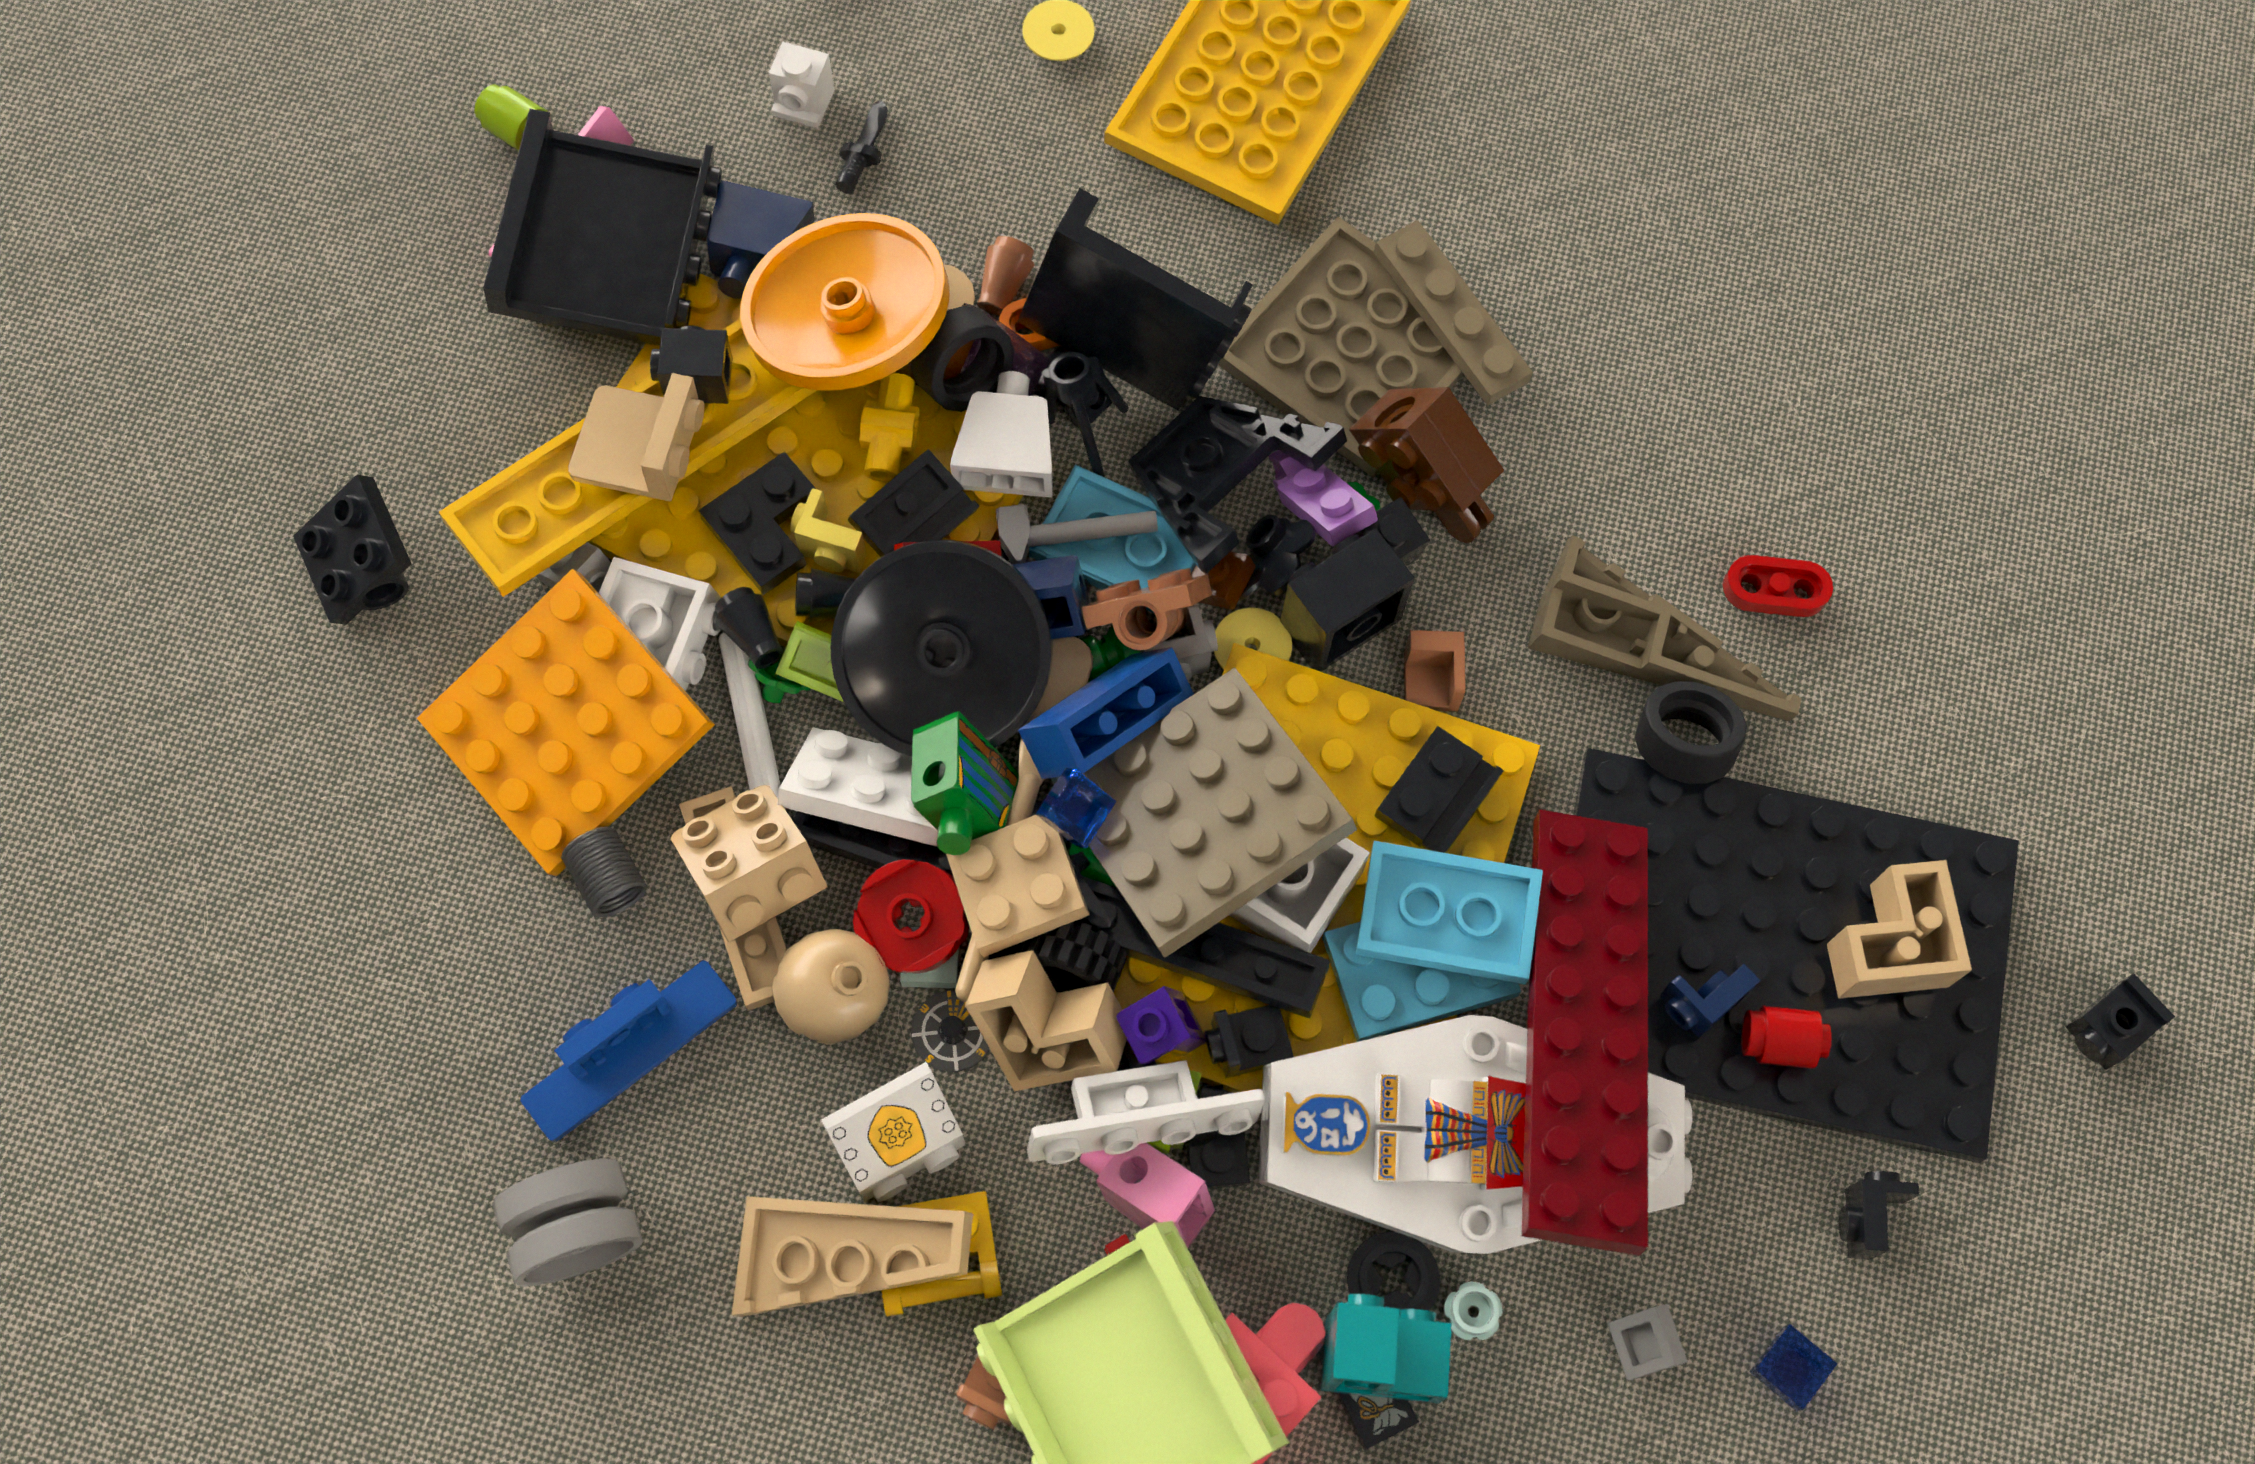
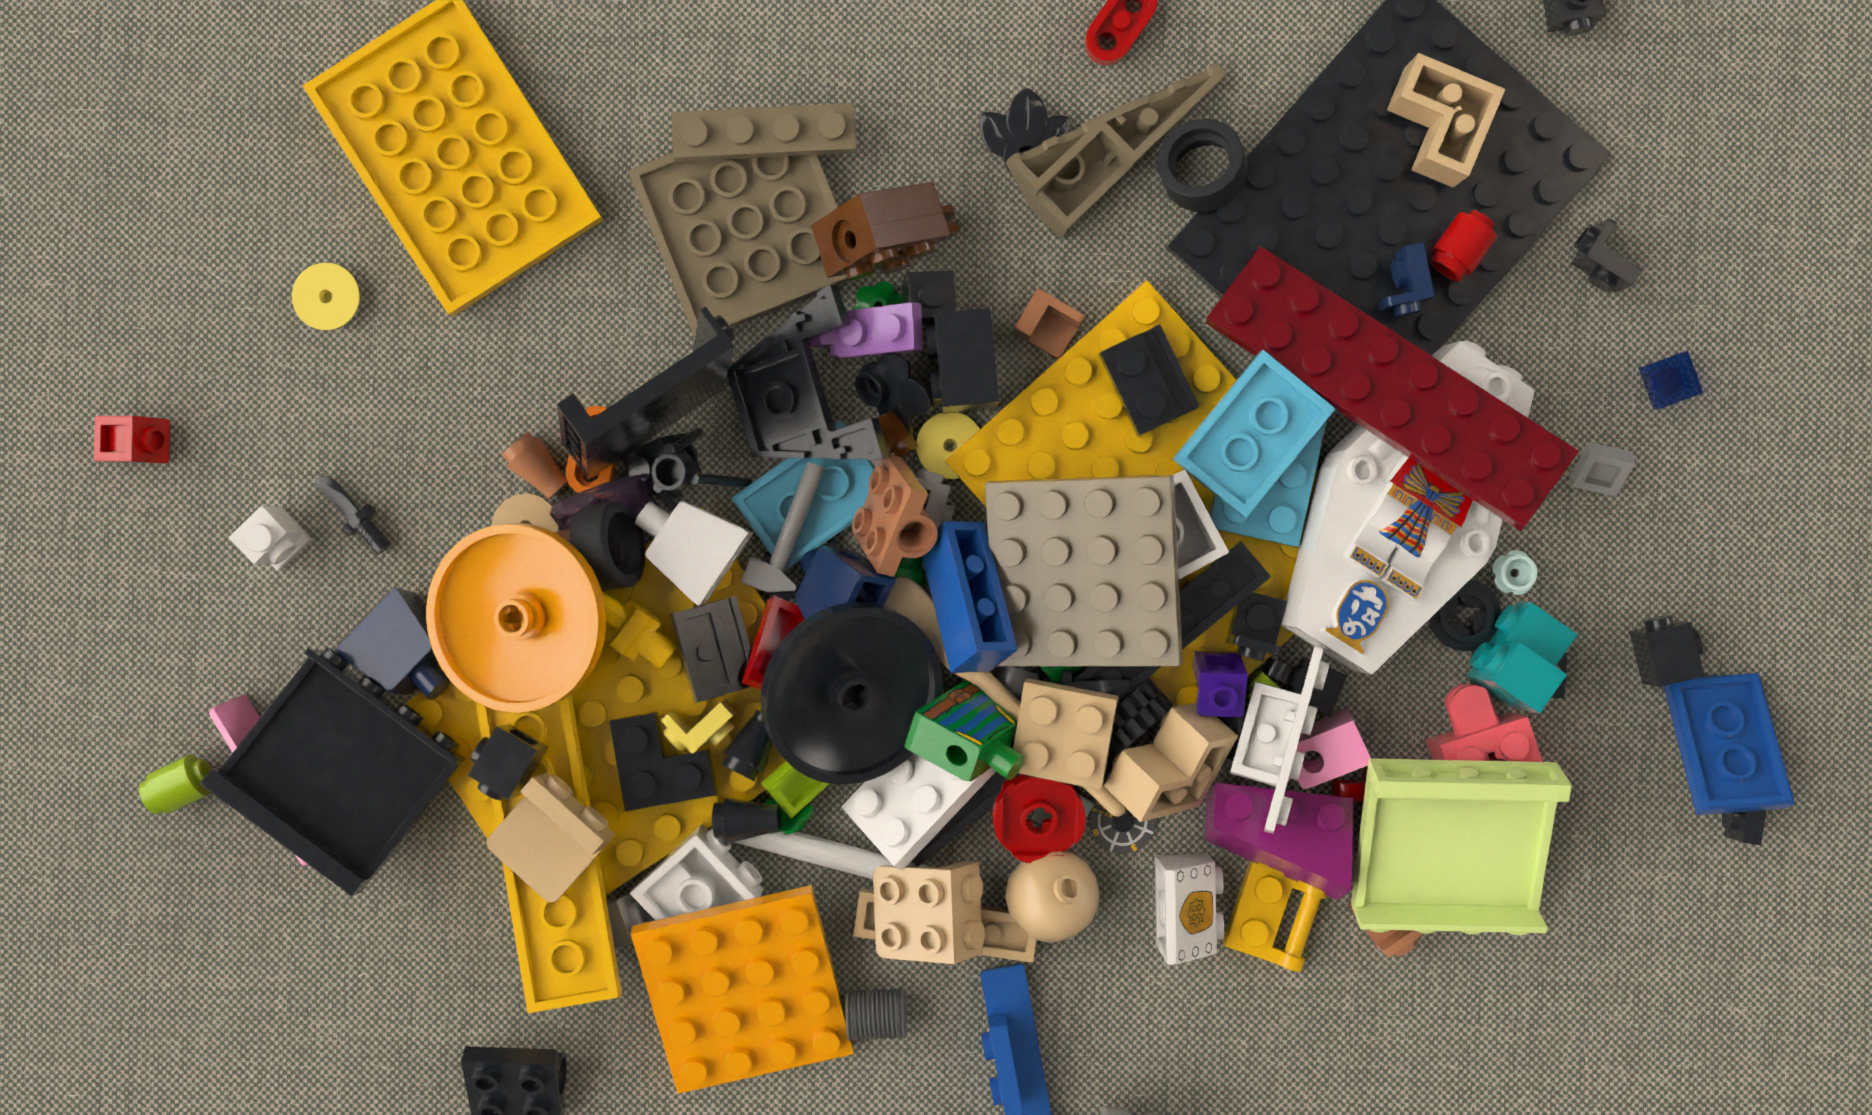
camera: 60 degrees left, 20 degrees up
(834, 1250) = (1238, 994): tan wing -> none
(1039, 1212) = (1309, 848): none -> magenta wedge
(1076, 807) = (1039, 666): clear blue plate -> none
(1623, 544) = (1022, 127): none -> black plate

